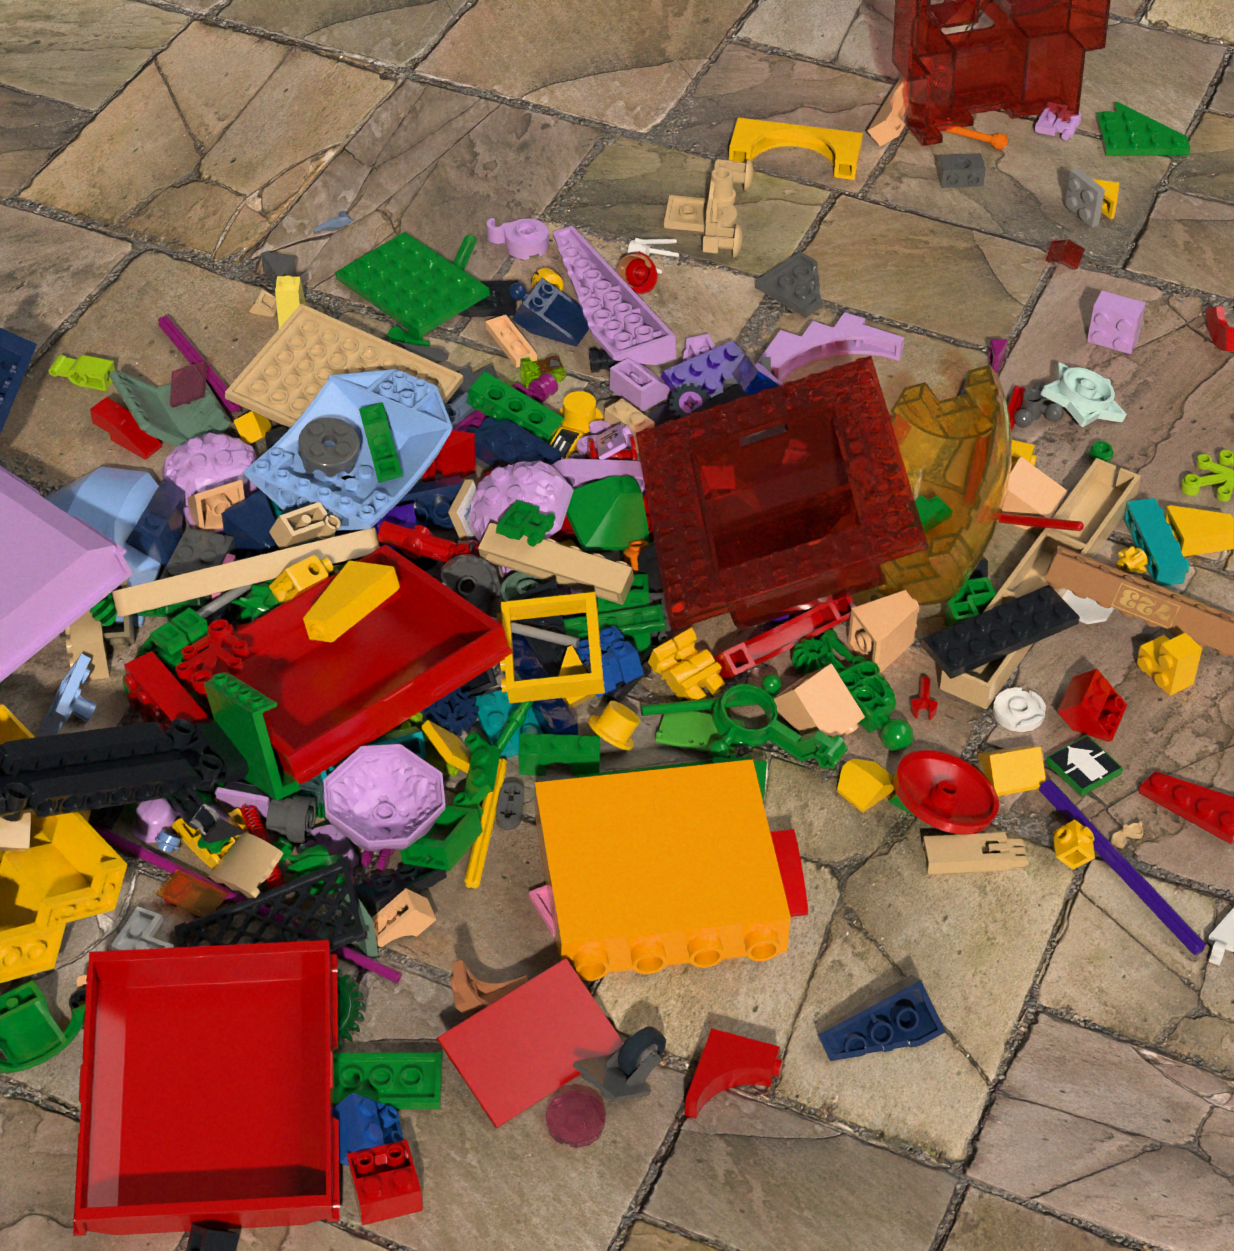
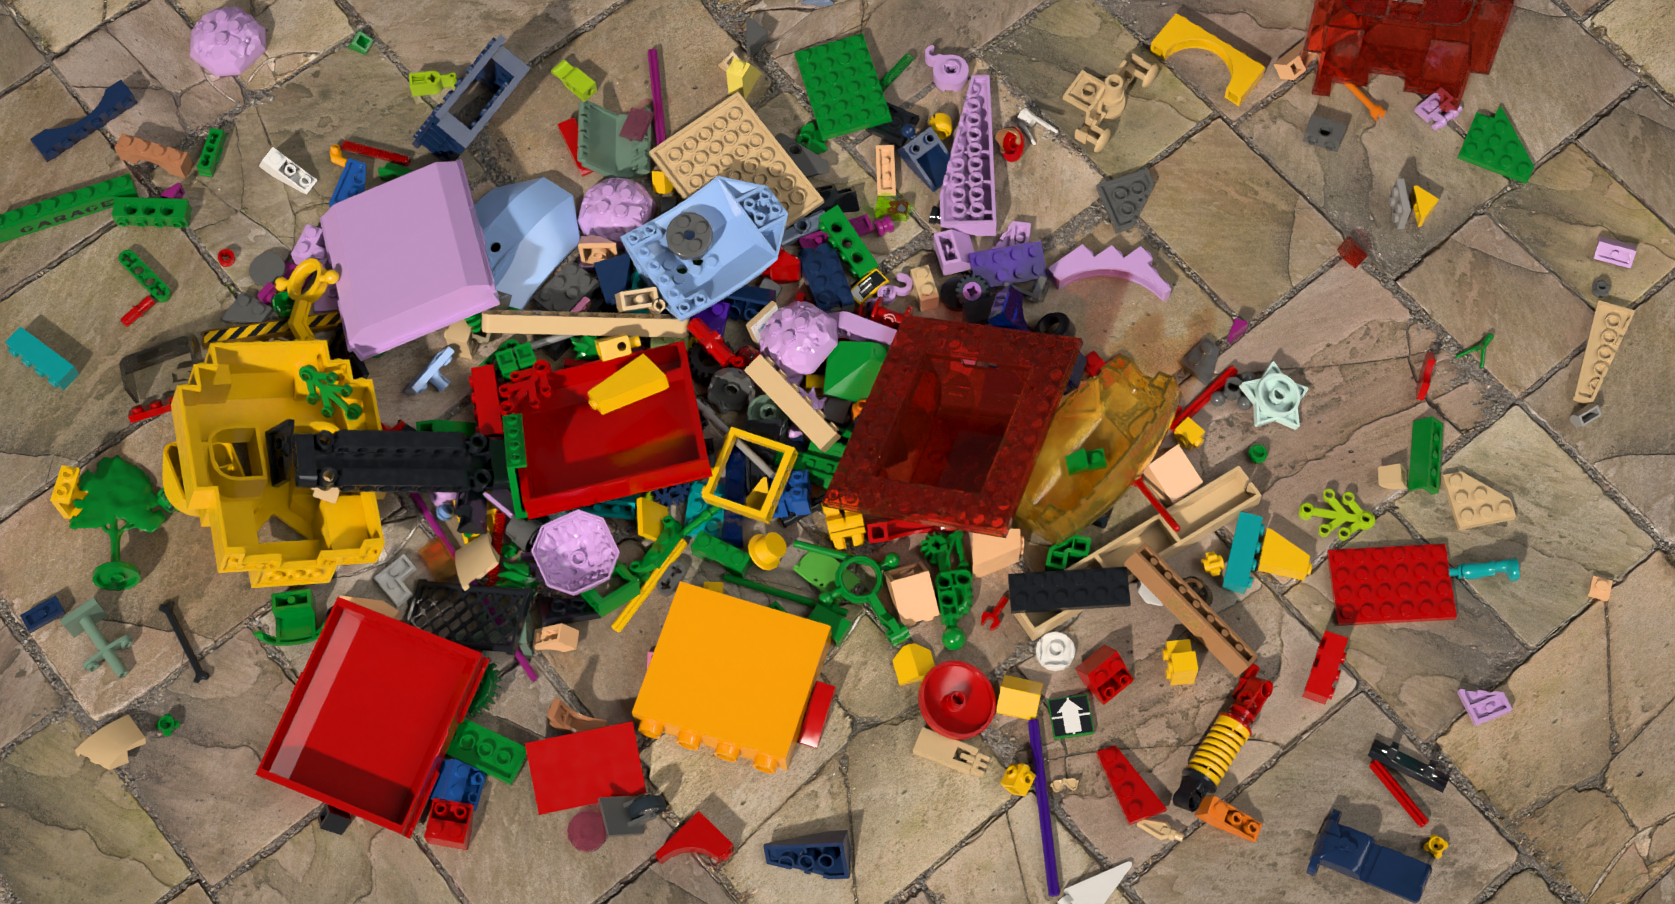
camera: 30 degrees right, 20 degrees up
(160, 524) = (556, 248): dark blue wedge -> none
(380, 442) = (727, 249): green slope -> none
(519, 521) = (776, 363): green plate -> none
(579, 411) = (896, 260): yellow piece -> none
(613, 440) = (895, 303): lavender door -> none
(1116, 322) = (1343, 339): lavender brick -> none

